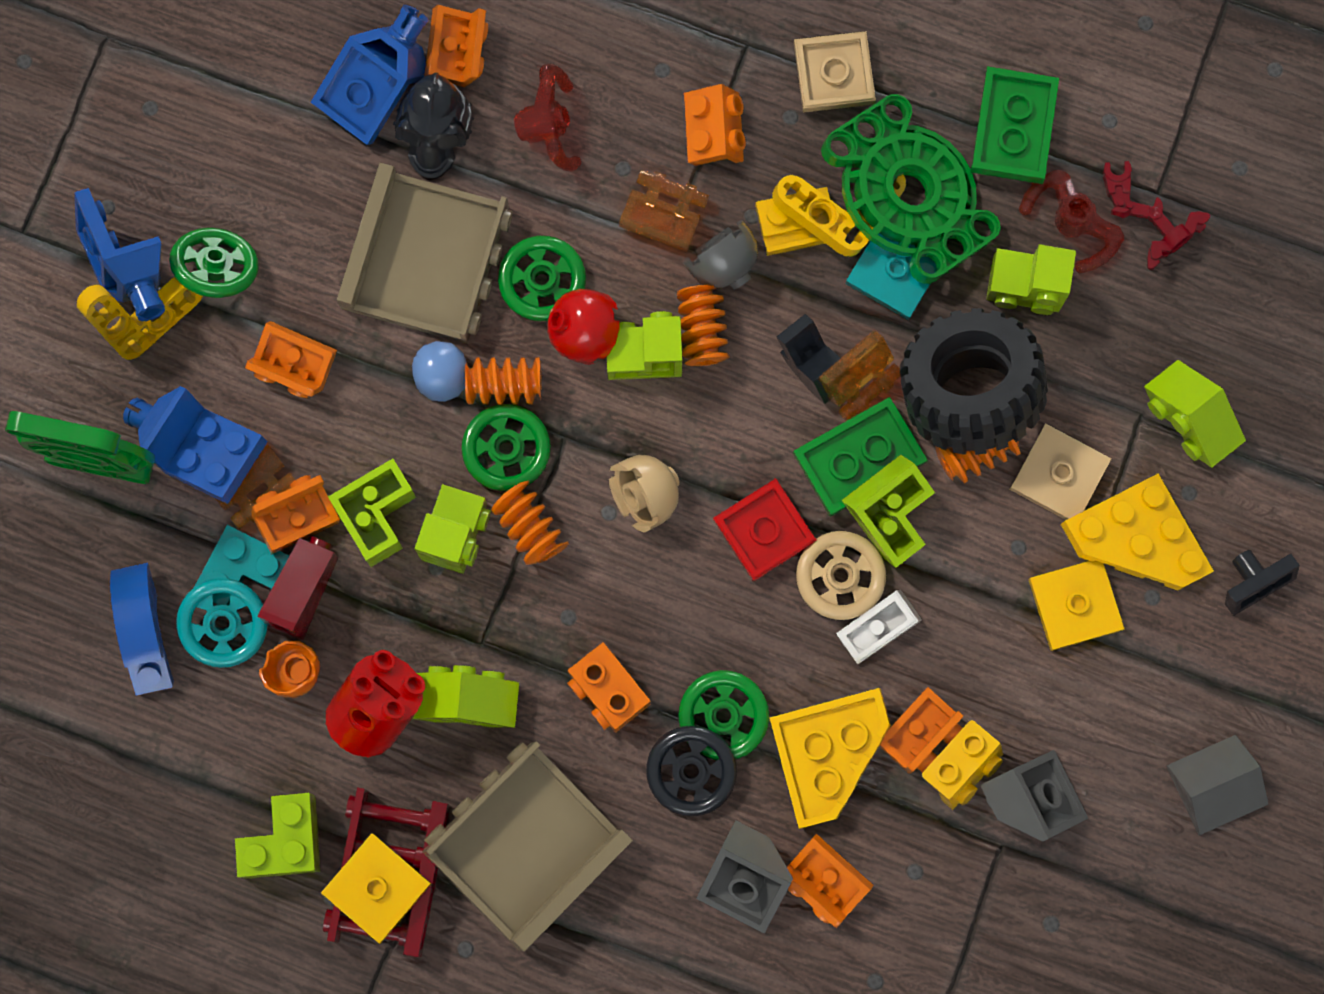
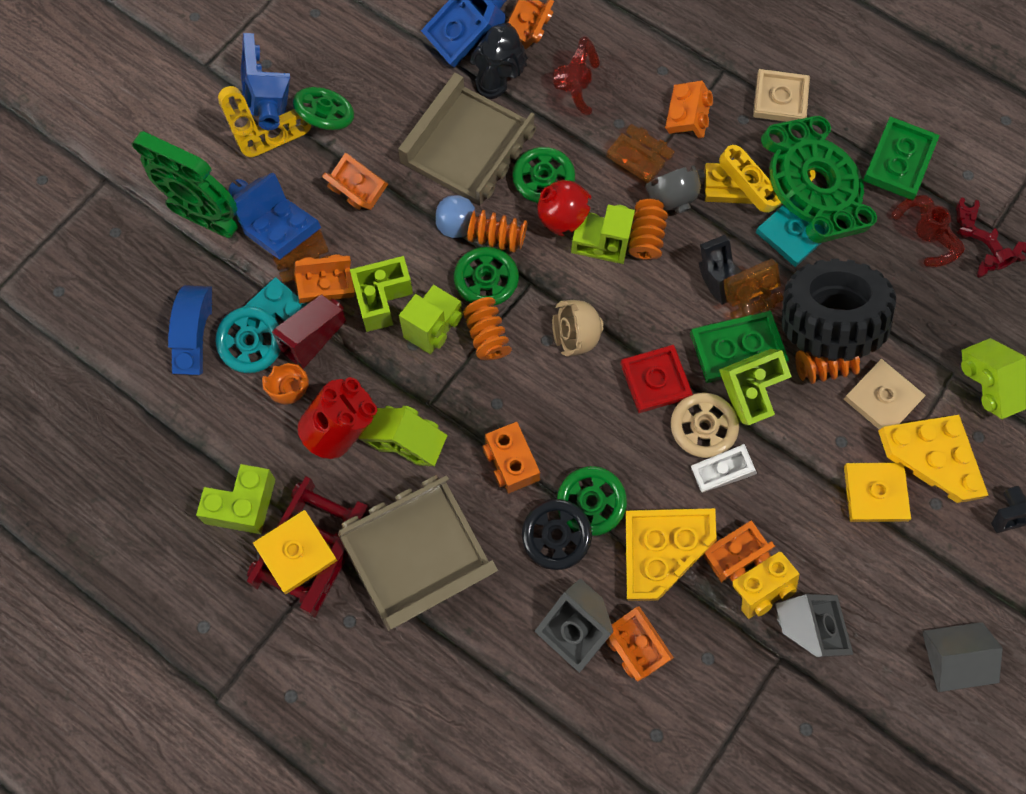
camera: 15 degrees right, 10 degrees down
(1031, 279) = (896, 258): lime brick -> none

